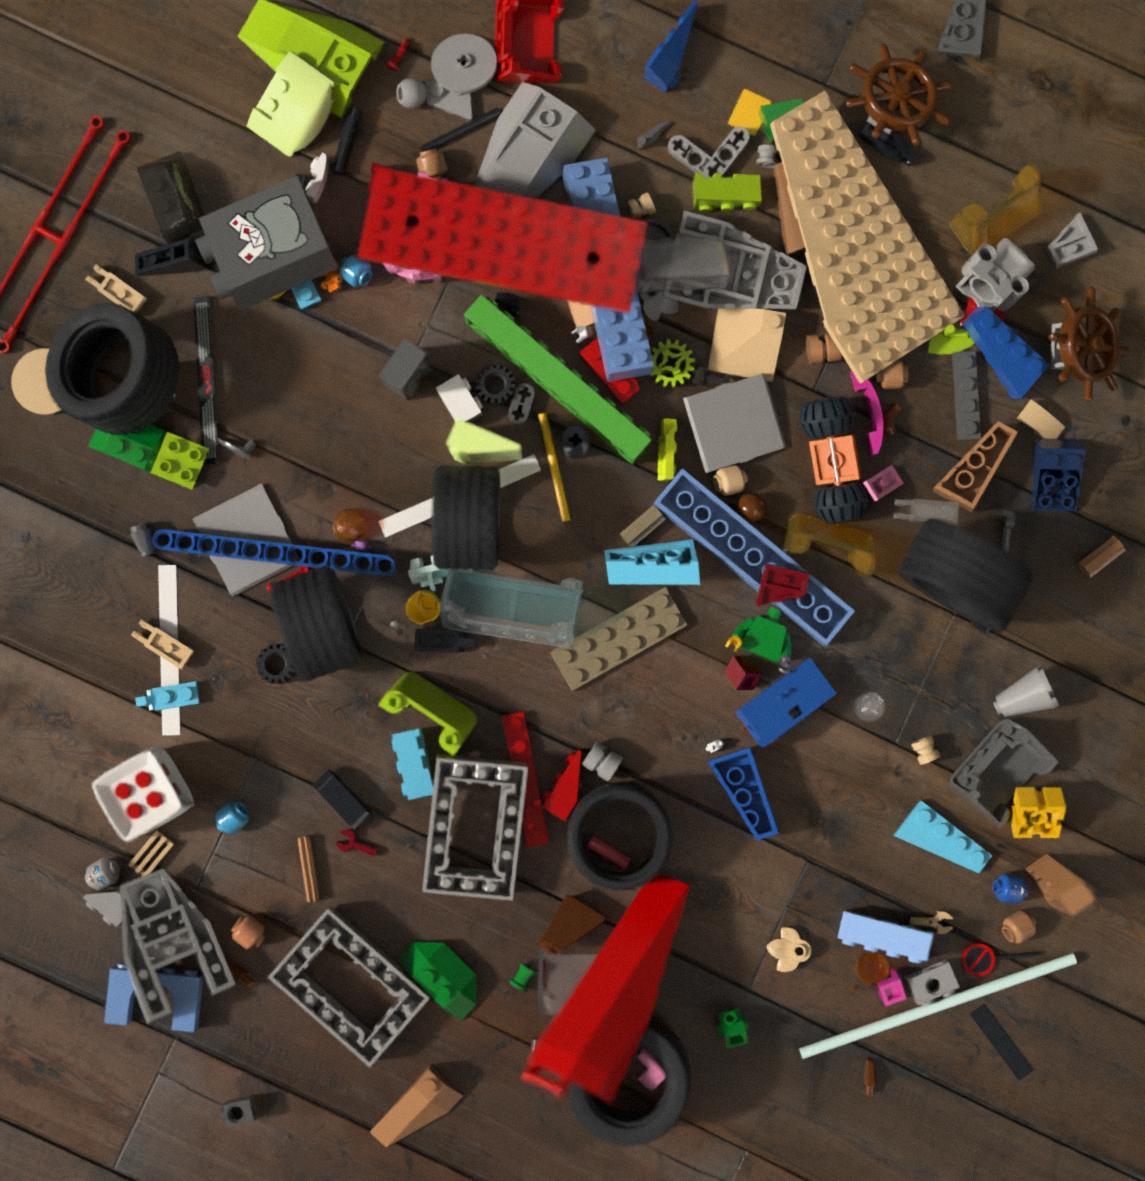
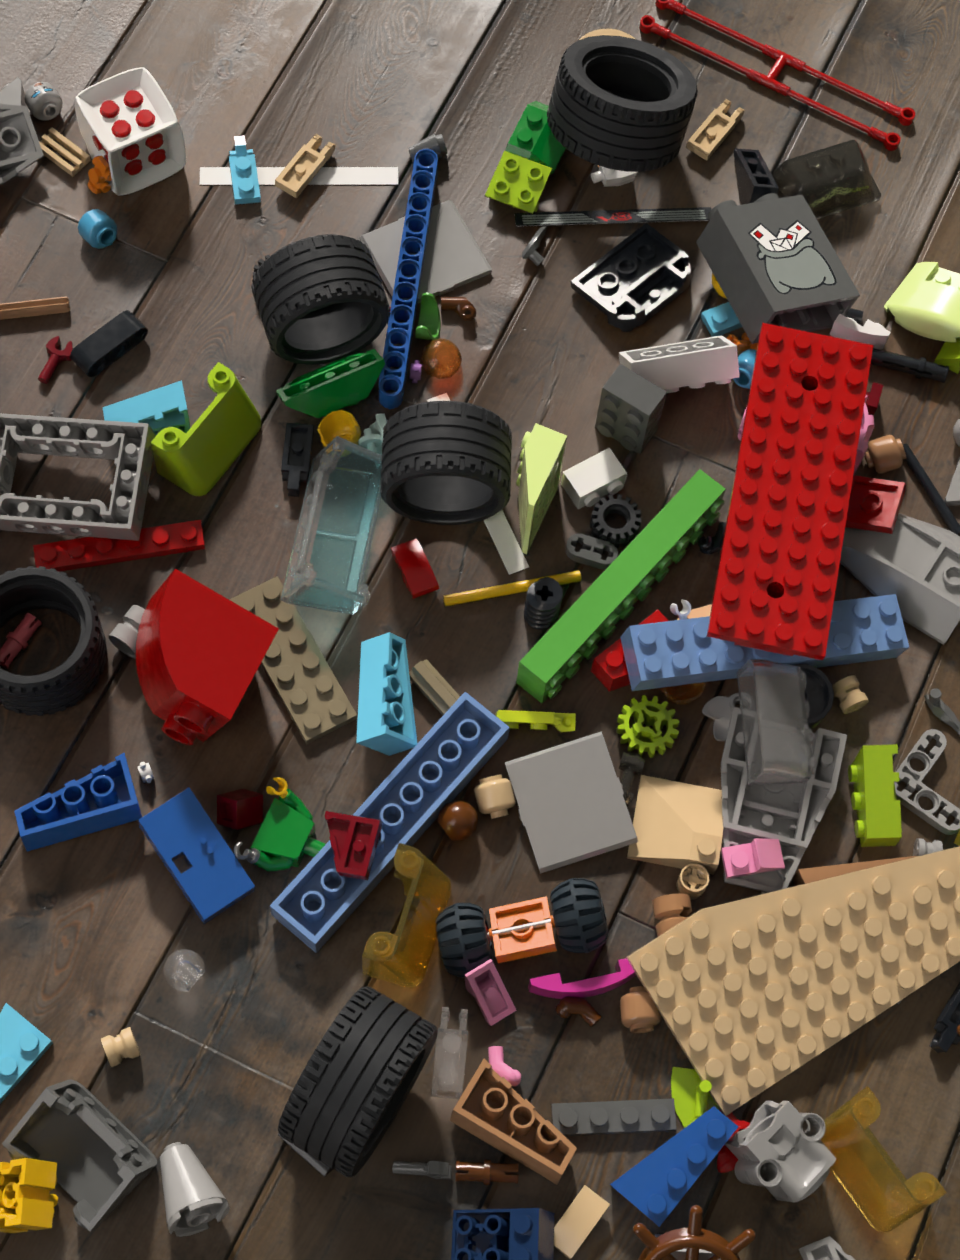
camera: 85 degrees right, 20 degrees down
(180, 820) = (99, 176): none -> orange piece
(269, 363) = (635, 278): none -> black plate
(297, 509) = (460, 306): none -> reddish brown arm
(315, 536) = (429, 319): none -> bright green helmet
(359, 328) = (685, 363): none -> white brick
(379, 614) = (333, 385): none -> green wedge
(486, 172) = (874, 504): none -> red plate
(540, 544) = (415, 568): none -> red slope
(564, 794) = (107, 590): red slope -> none
(644, 706) = (197, 656): none -> red brick
(781, 287) = (752, 858): none -> bright pink slope
(796, 331) = (695, 875): none -> tan wheel
(939, 472) = (496, 1059): none -> bright pink arm
(1008, 485) = (487, 1172): none -> reddish brown pin

